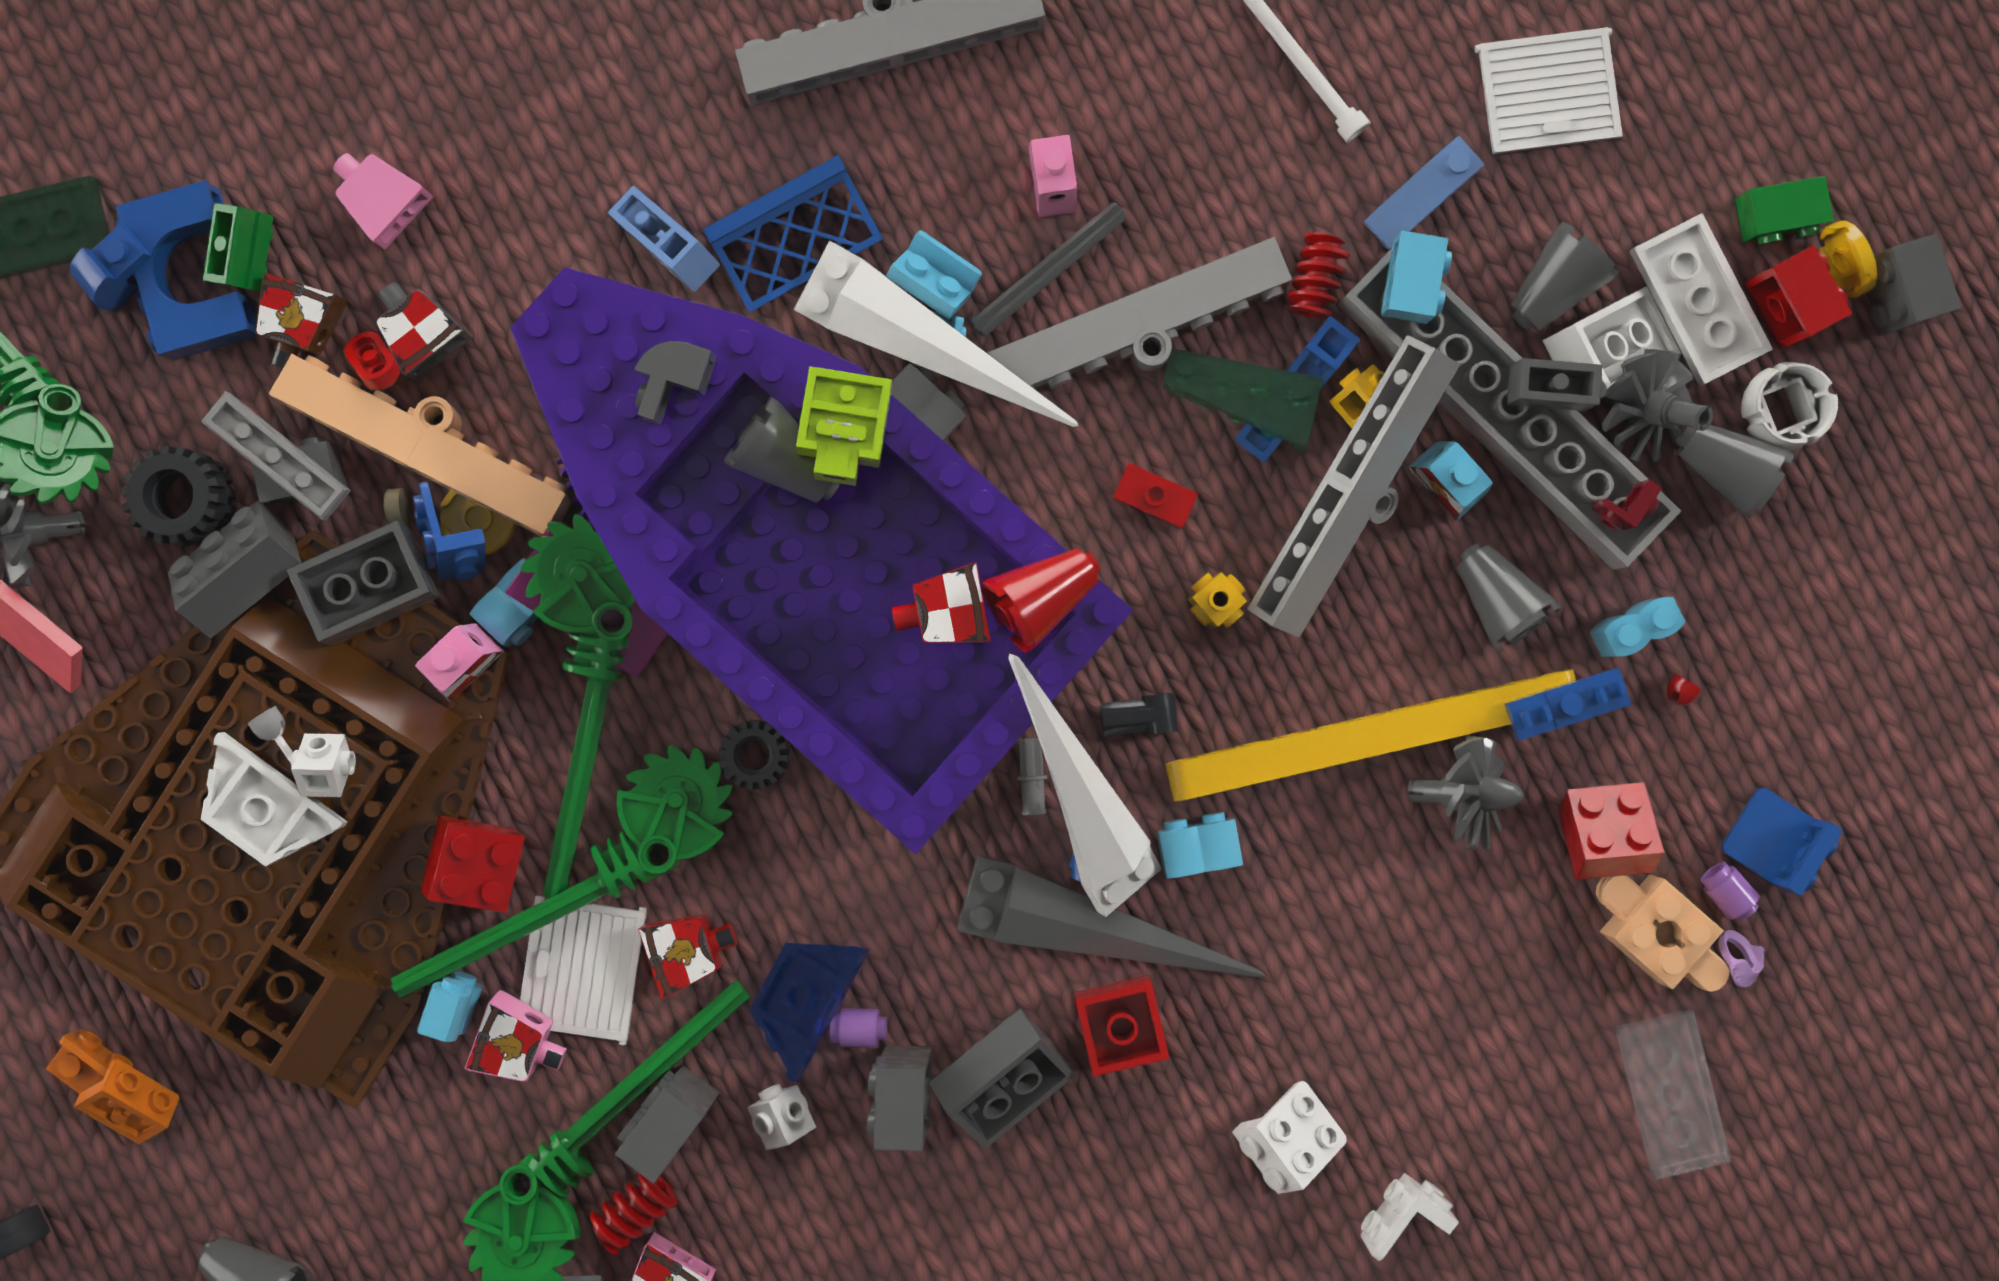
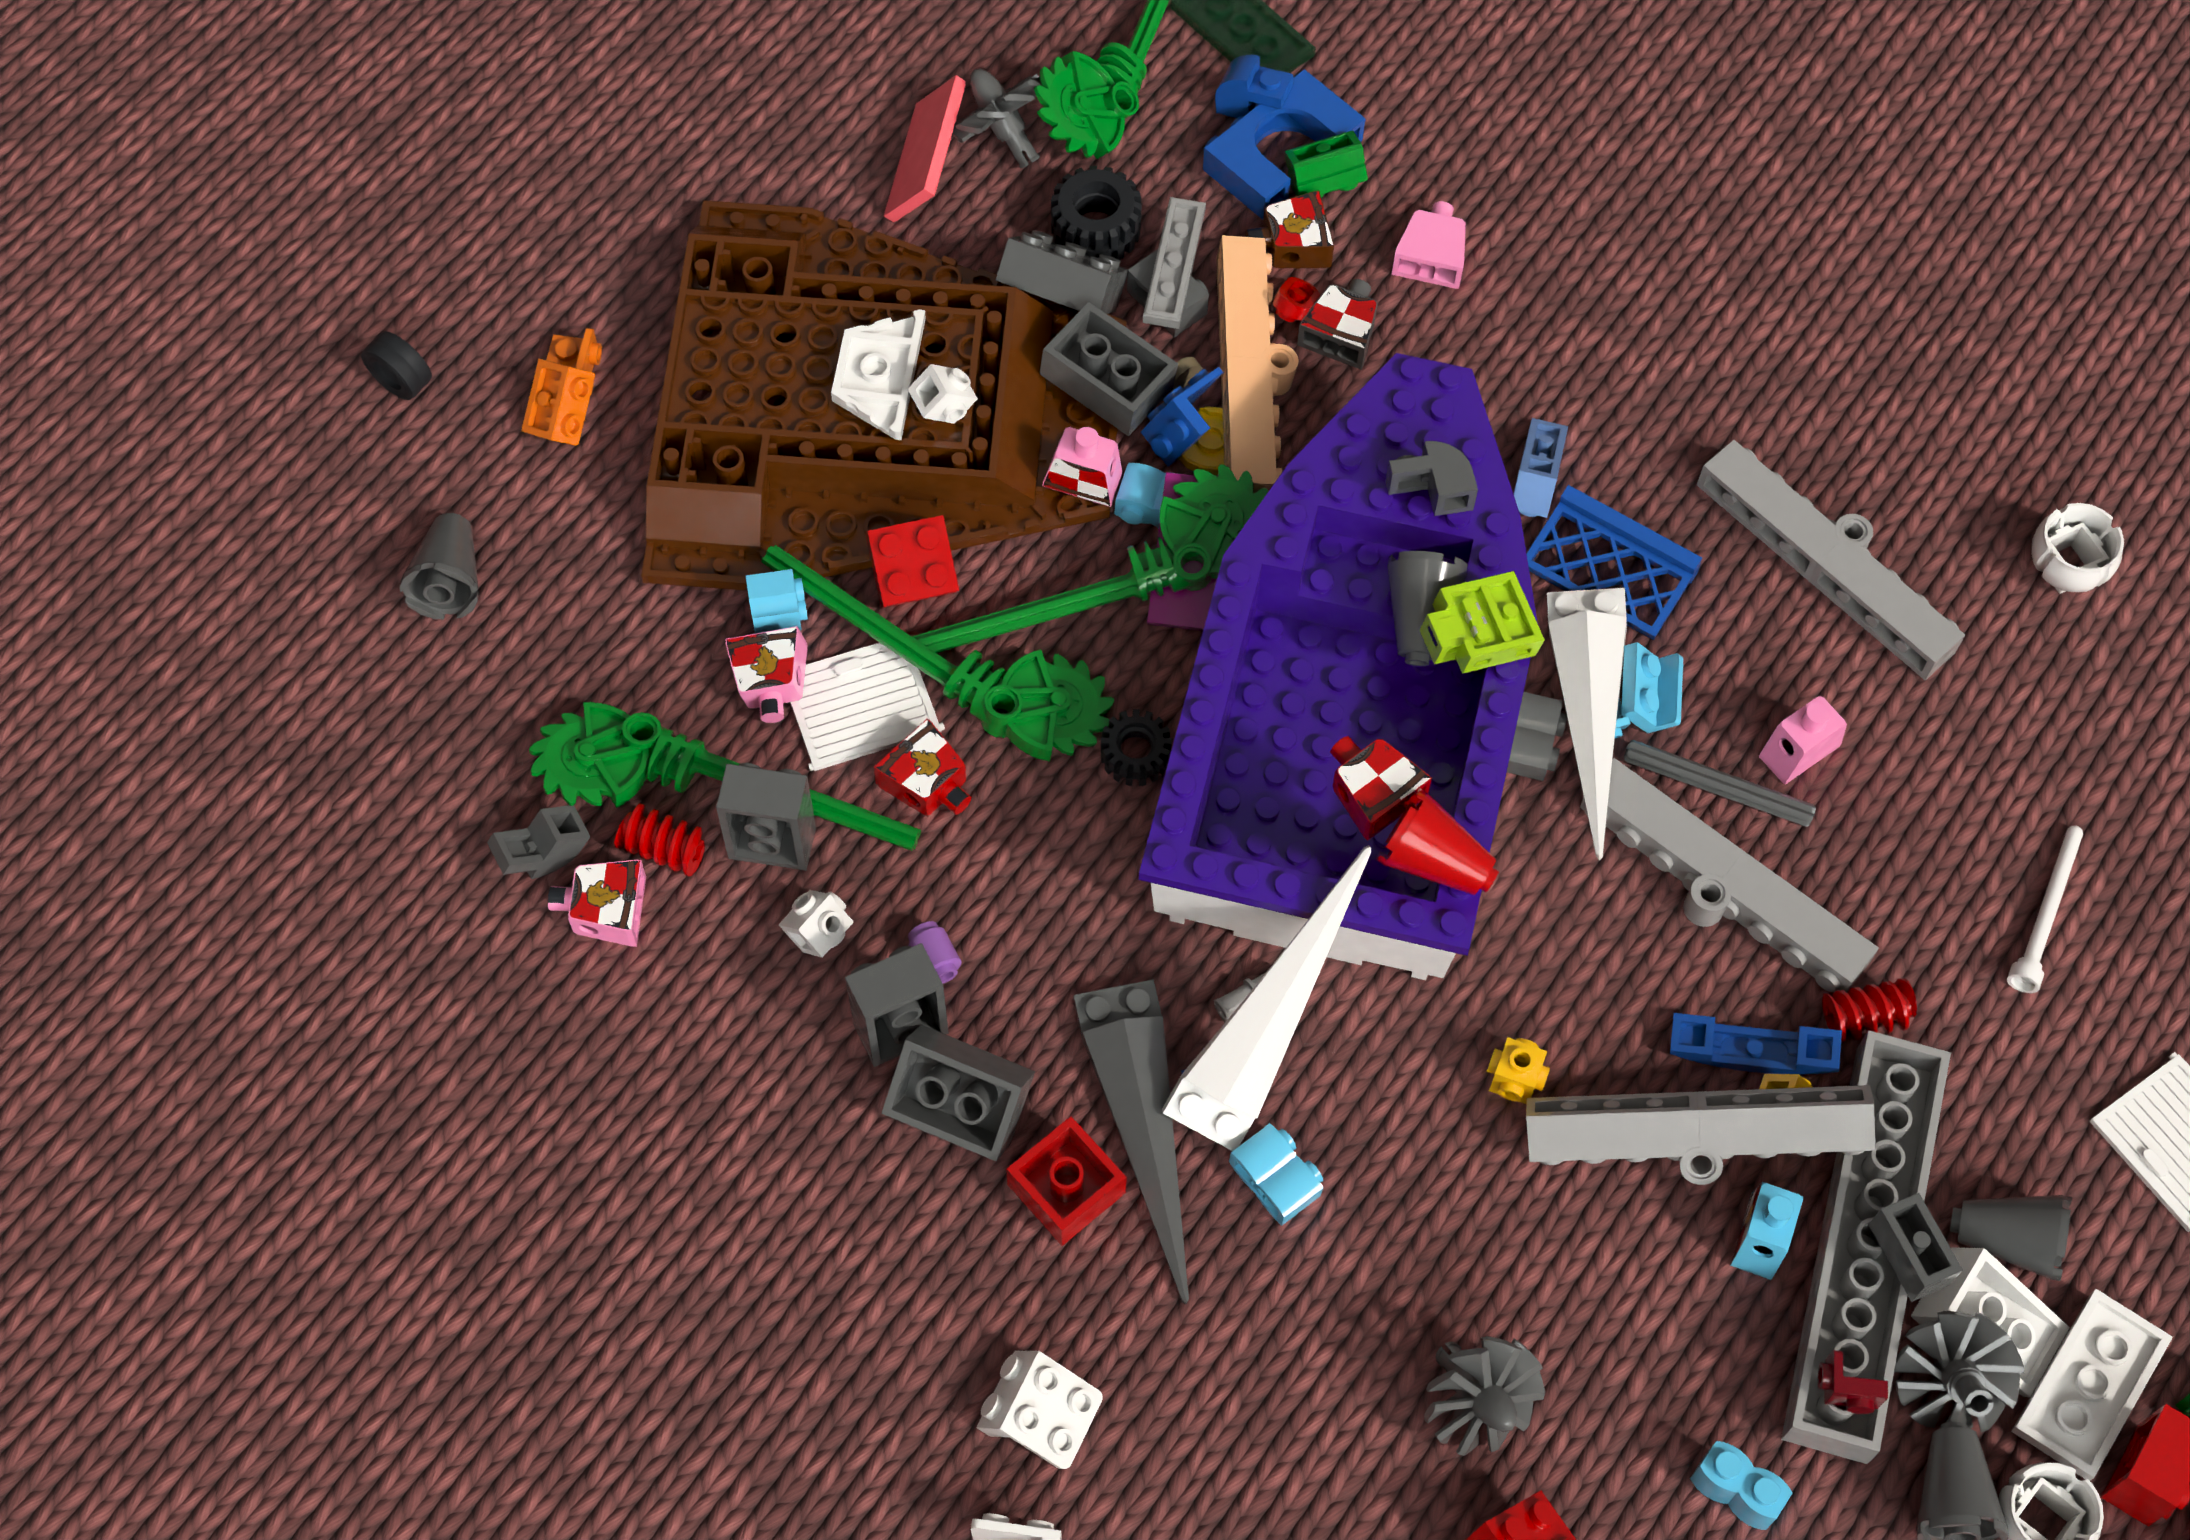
camera: 65 degrees right, 25 degrees down
(270, 726) = (951, 346): light grey hinge -> none
(803, 999) = (937, 890): clear blue wing -> none
(1149, 715) = (1374, 1067): black piece -> none
(1155, 495) = (1577, 974): red plate -> none
(1262, 396) = (1727, 1009): clear green wing -> none
(1352, 739) = (1483, 1286): yellow beam -> none
(1416, 277) = (1926, 1074): medium azure brick -> none
(1424, 191) = (2014, 1070): medium blue slope -> none
(1503, 596) = (1685, 1339): dark grey cone -> none
(1568, 704) = (1624, 1445): blue plate -> none

